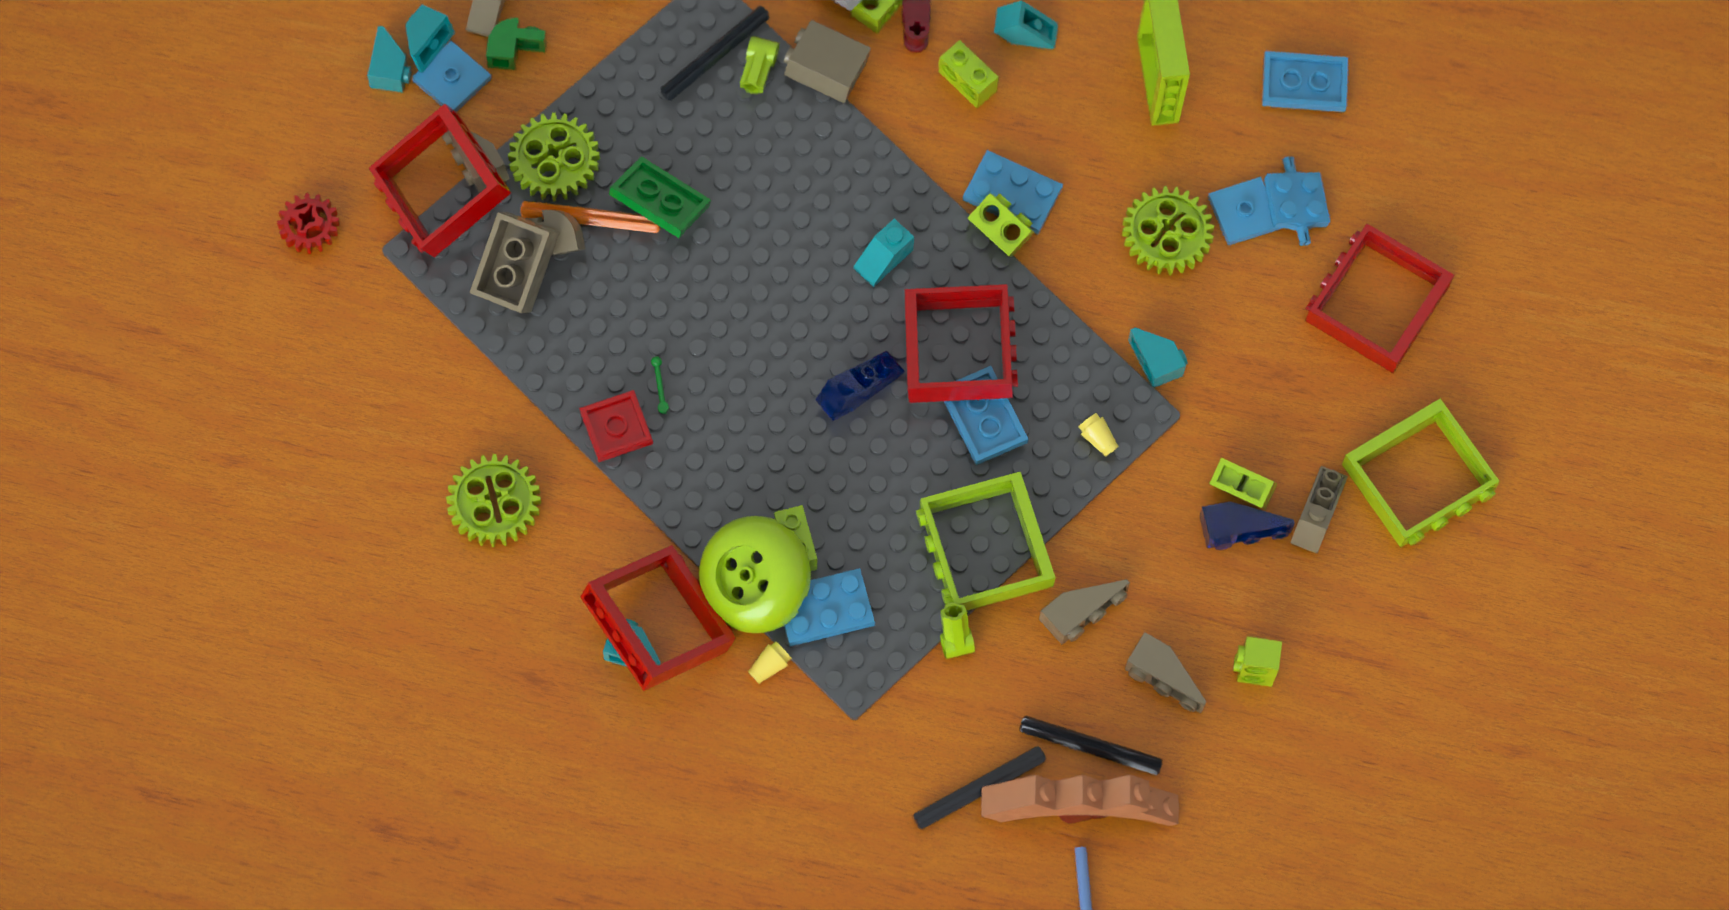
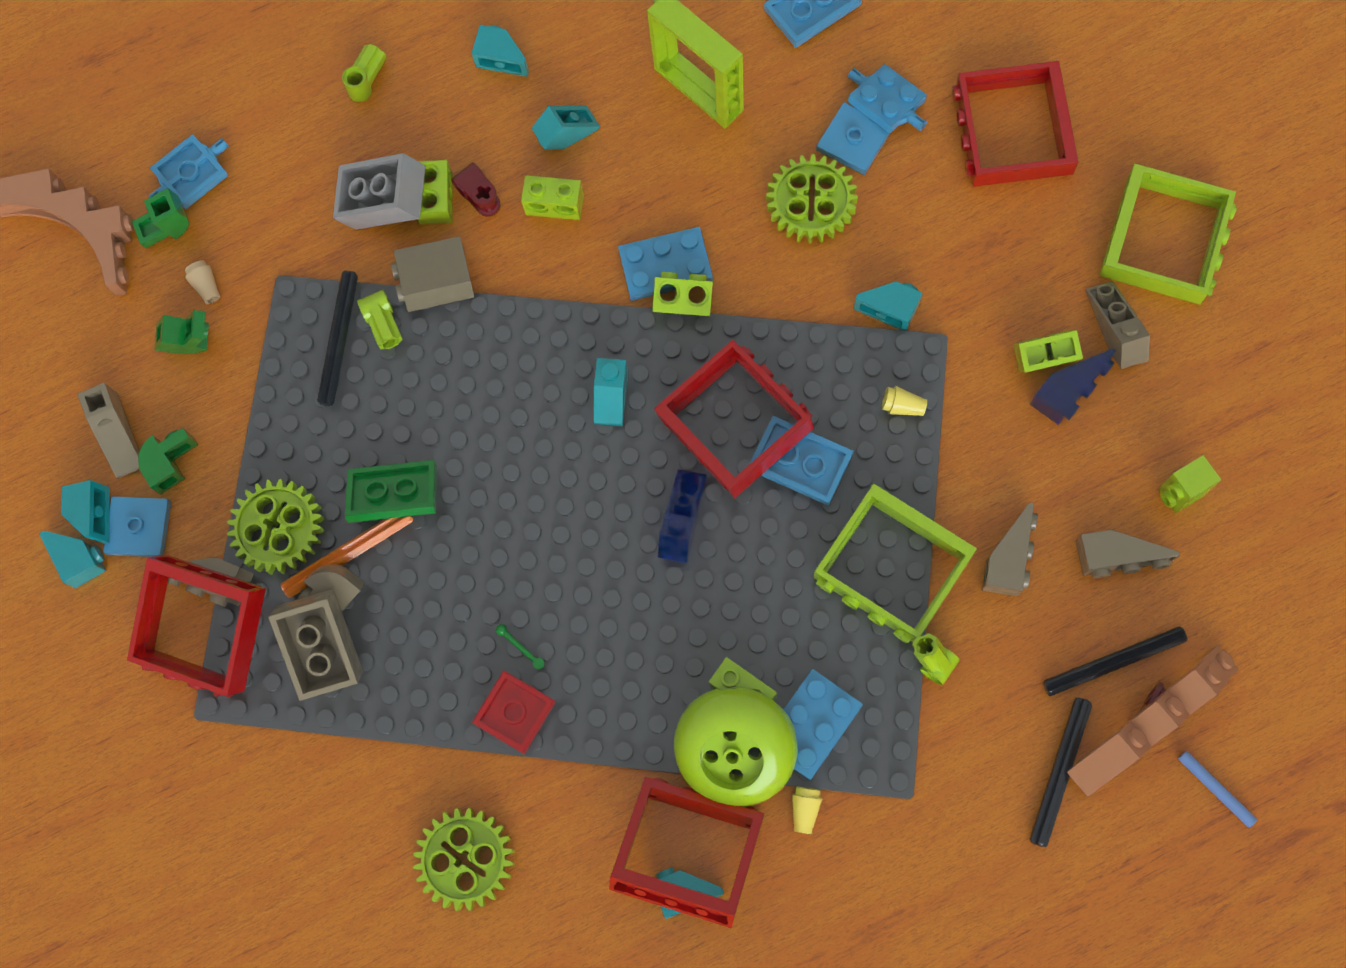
camera: 25 degrees left, 5 degrees up
(314, 232) = (103, 739): red gear -> none

